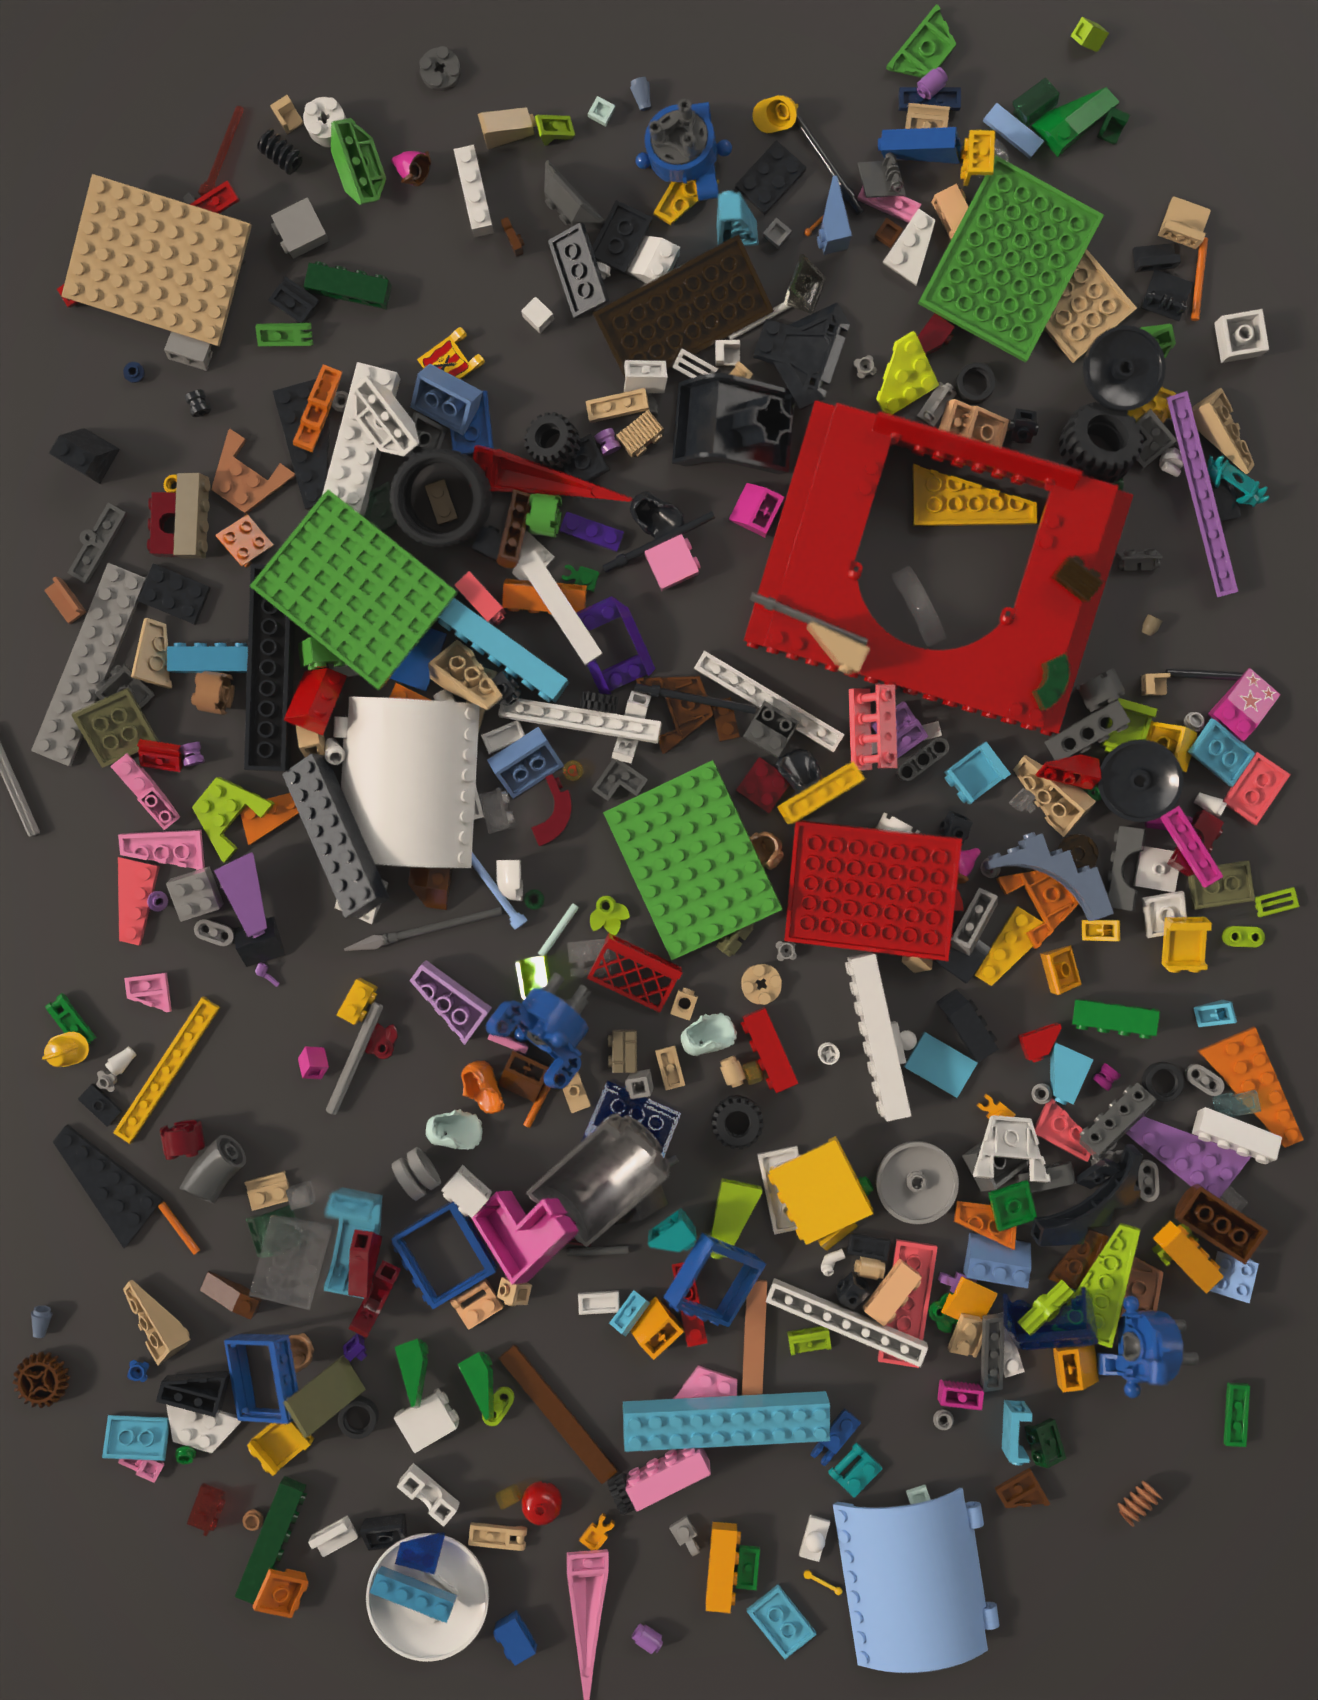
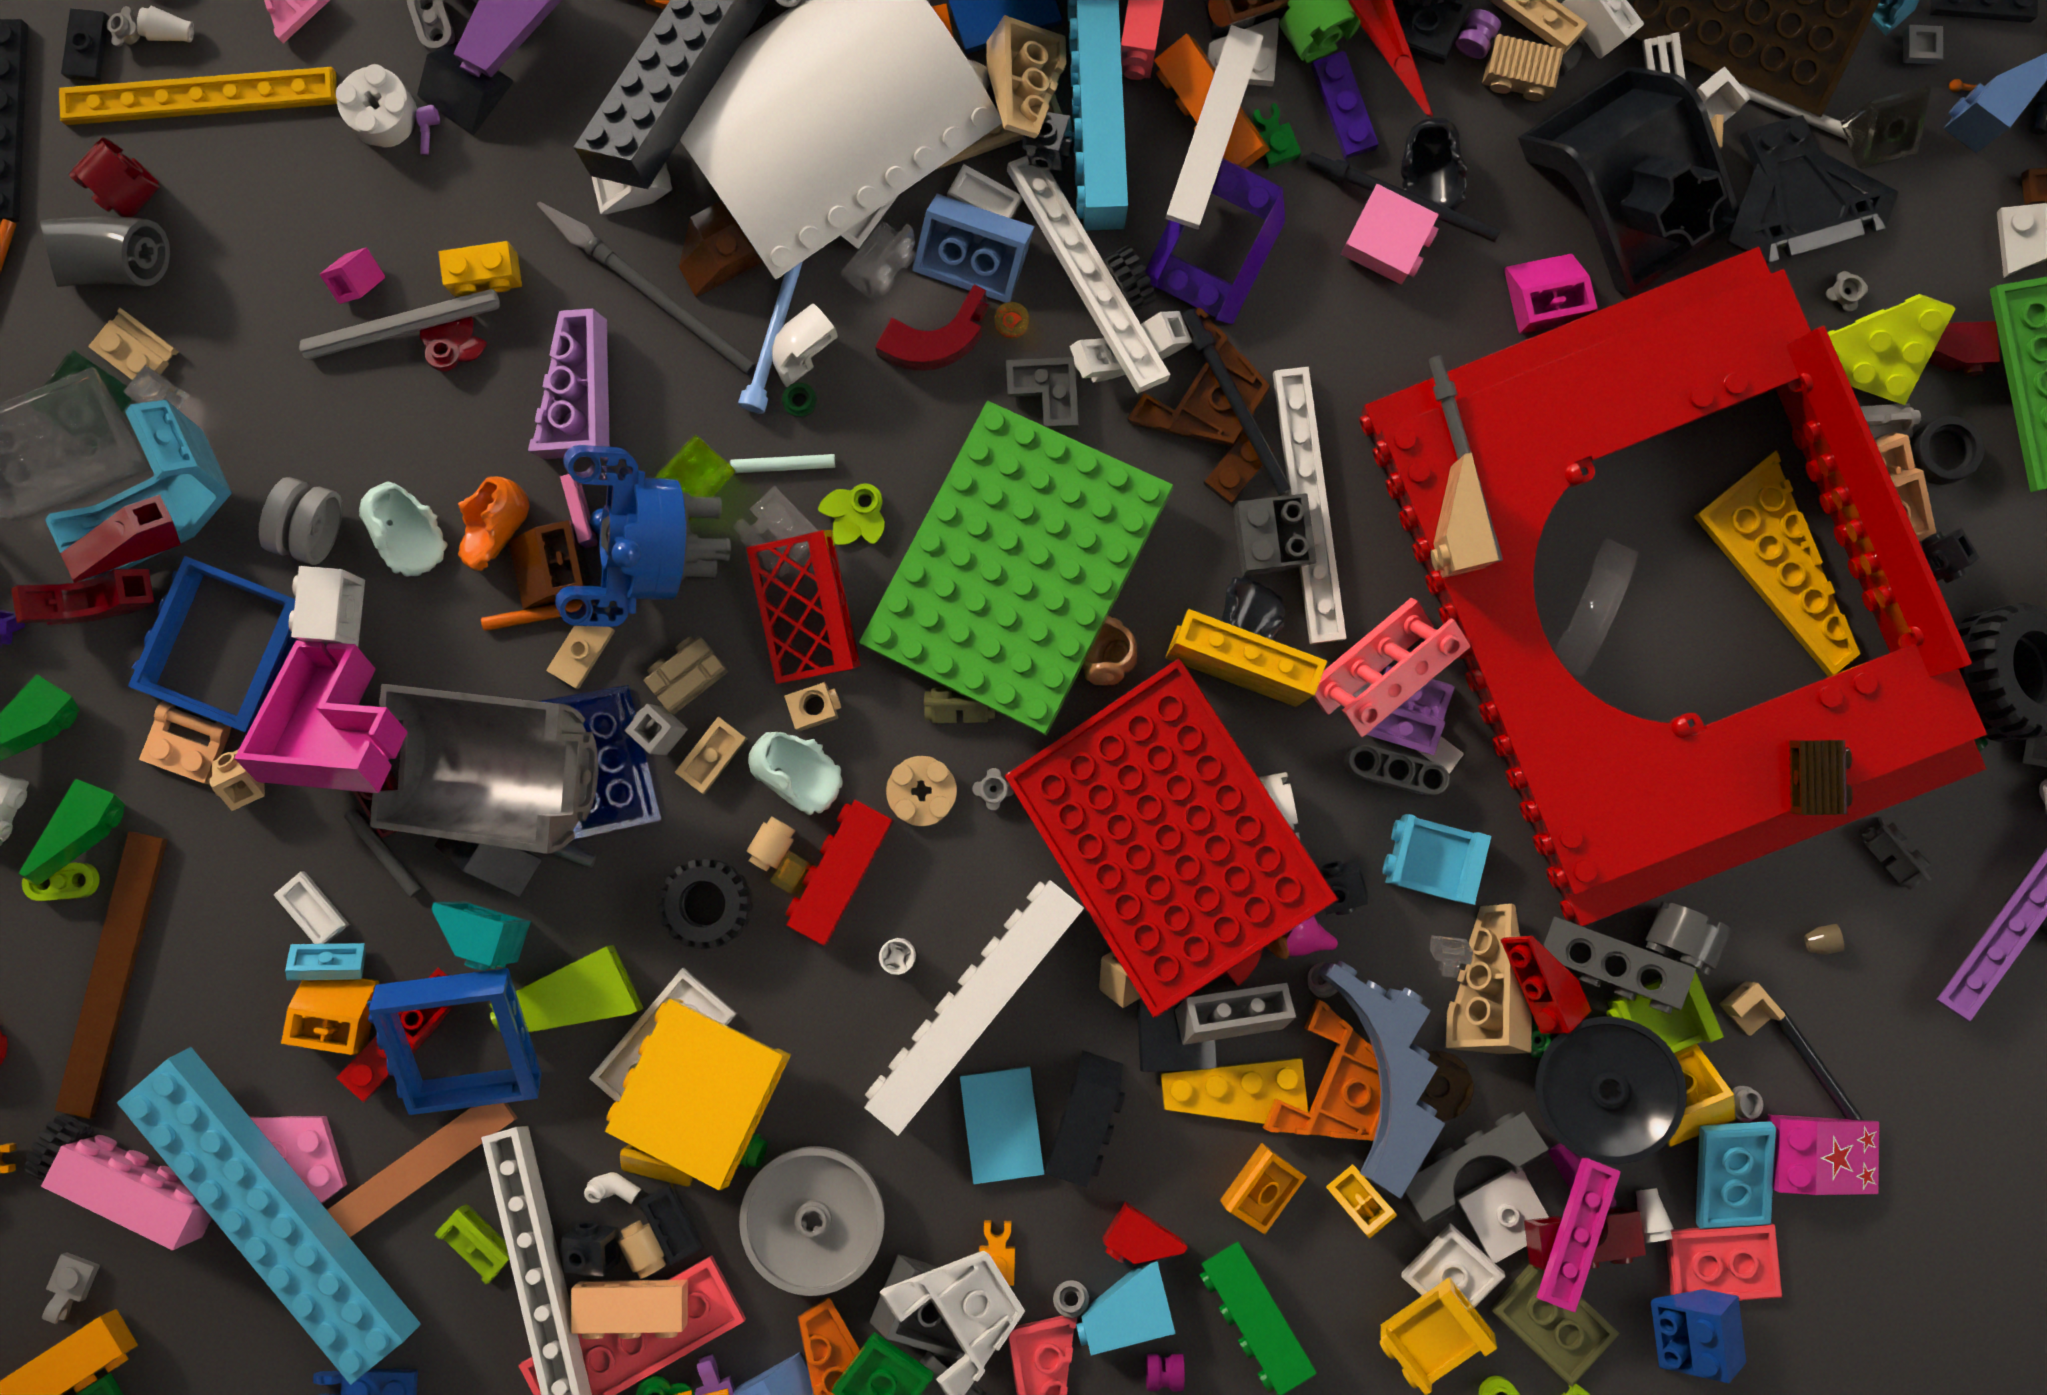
camera: 50 degrees right, 5 degrees down
(234, 1000) = (366, 91): none -> white brick
(763, 785) = (1191, 582): dark red plate -> none
(904, 1041) = (995, 1047): white tile -> none
(1053, 682) = (1654, 856): dark green brick -> none
(1277, 825) = (1700, 1334): none -> blue slope

